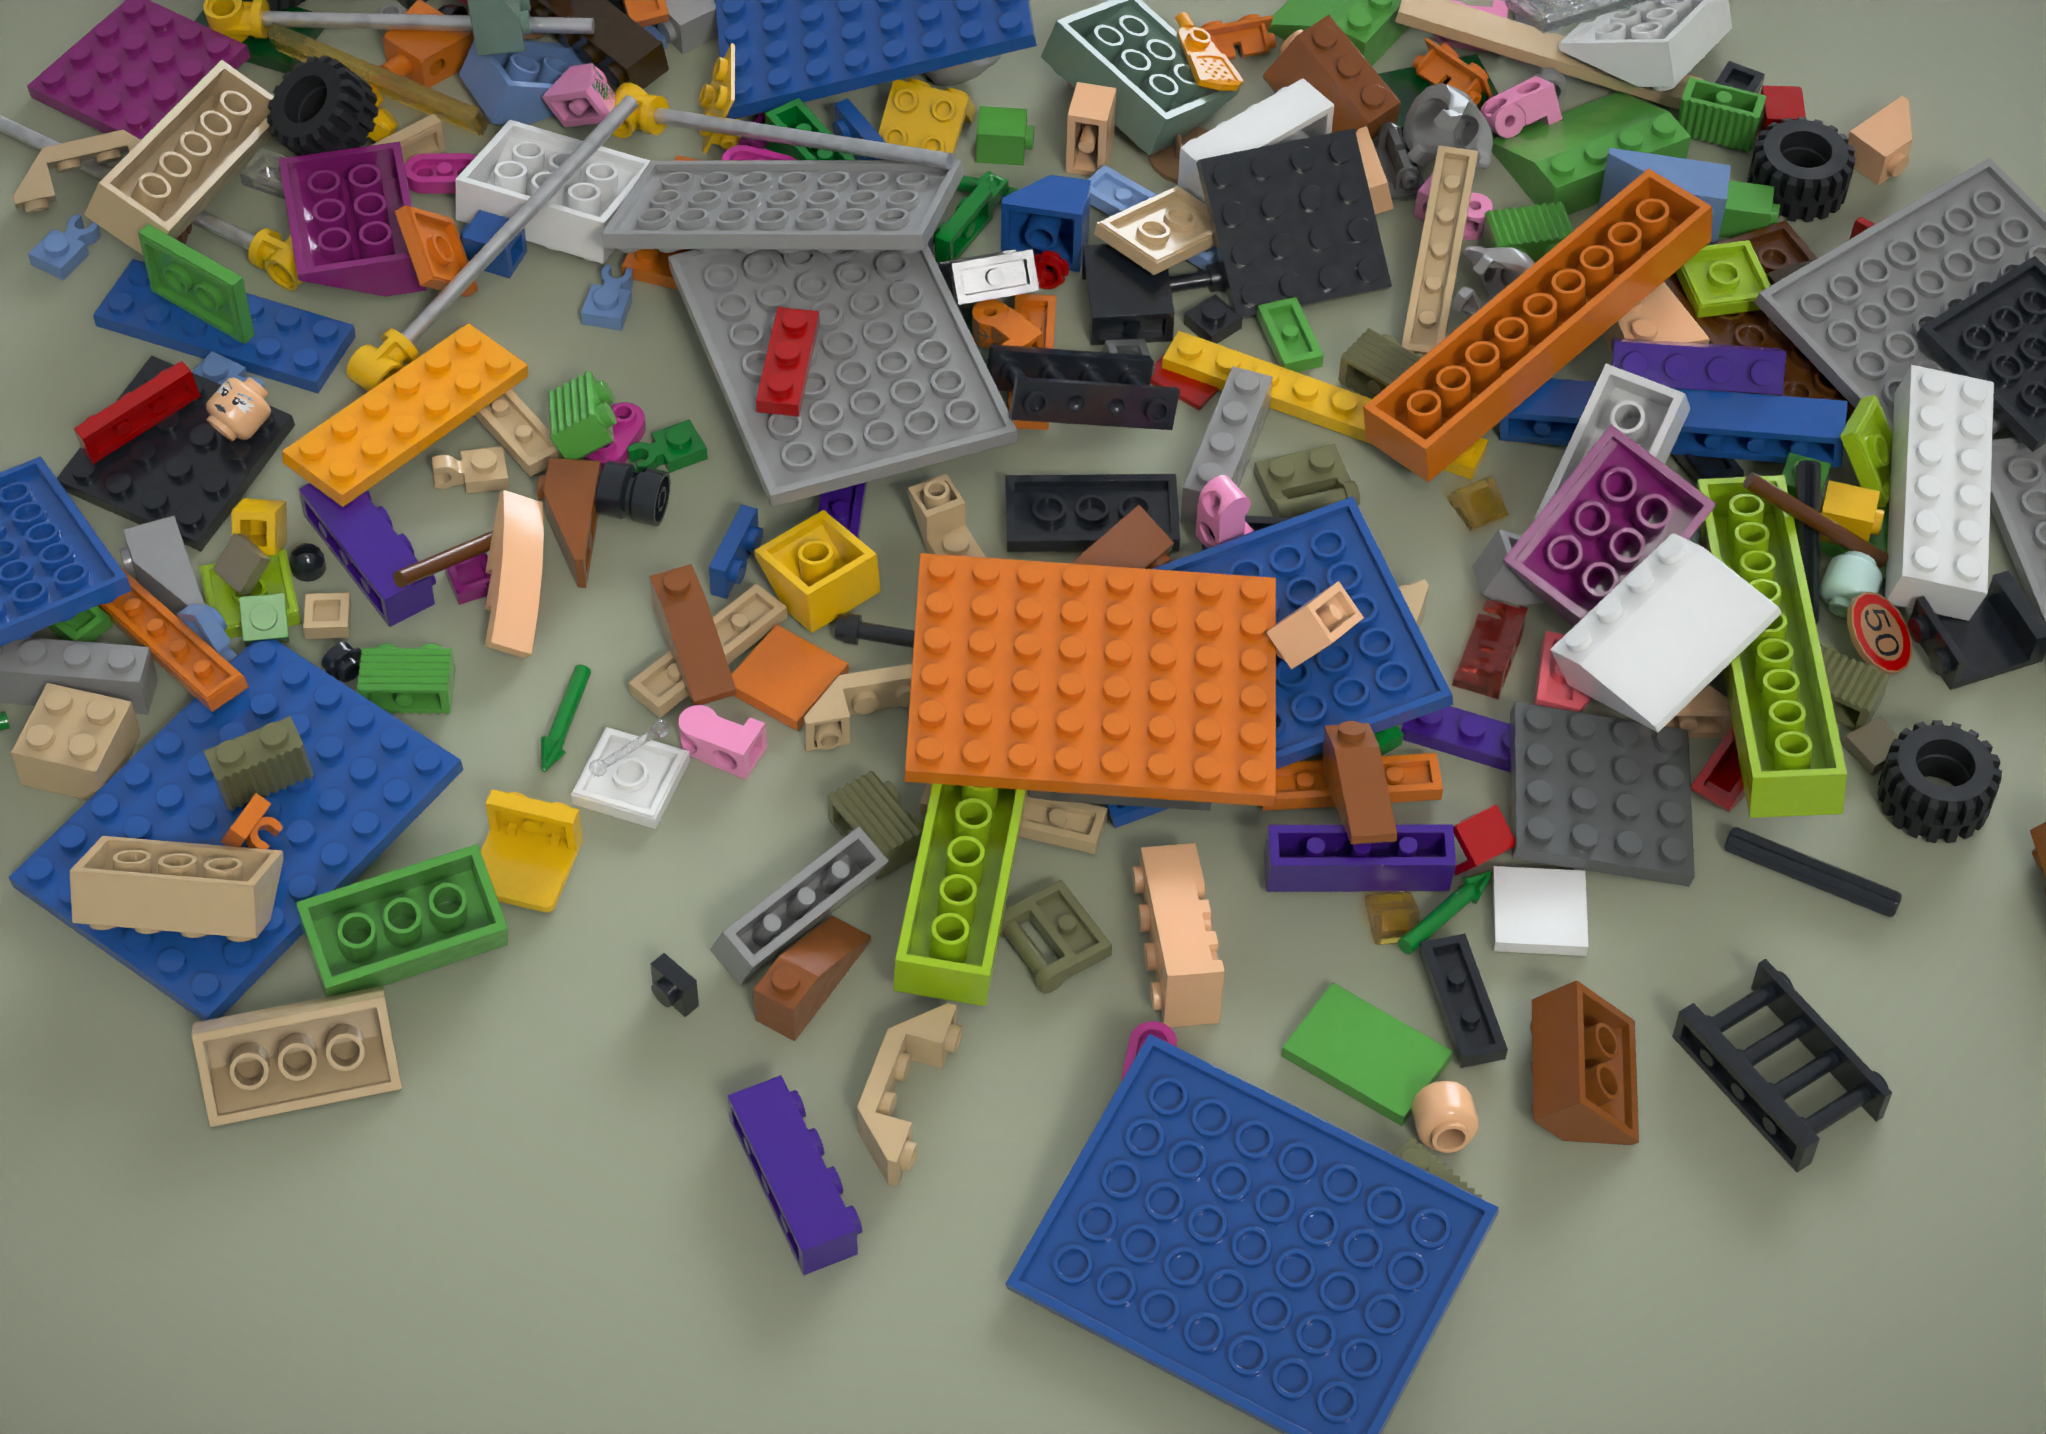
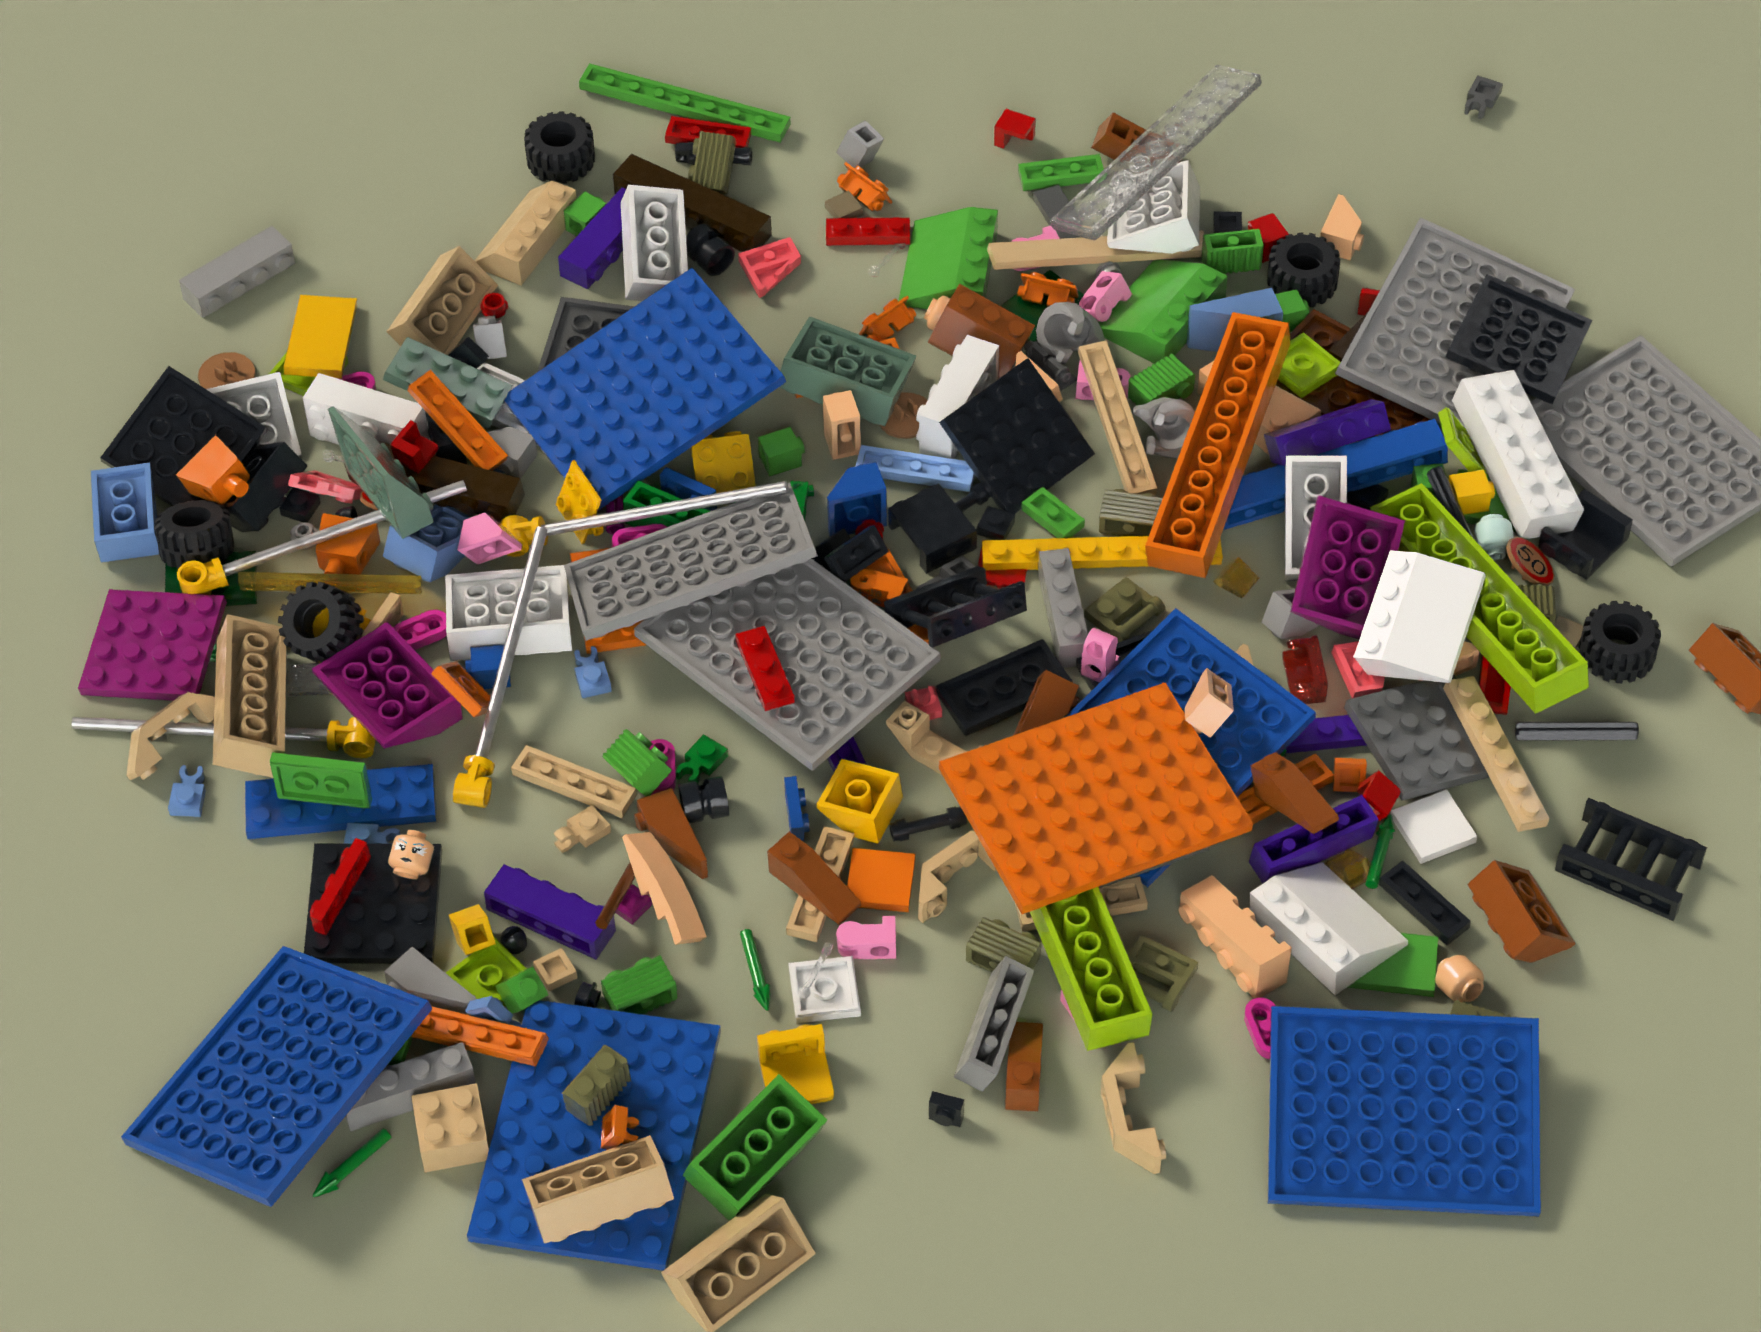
camera: 25 degrees left, 0 degrees up
(241, 564) = (480, 960): dark tan tile -> none
(404, 414) = (520, 811): light orange plate -> none
(794, 1174) = (1098, 1193): dark purple brick -> none
(982, 492) = (925, 700): none -> coral tile
(1160, 230) = (934, 476): tan tile -> none
(1206, 62) = (889, 347): light orange piece -> none
(1311, 969) = (1325, 925): none -> white slope
(1463, 795) = (1348, 774): none -> orange tile
(1675, 852) = (1496, 754): none -> tan plate
(1812, 518) = (1457, 504): reddish brown bar -> none

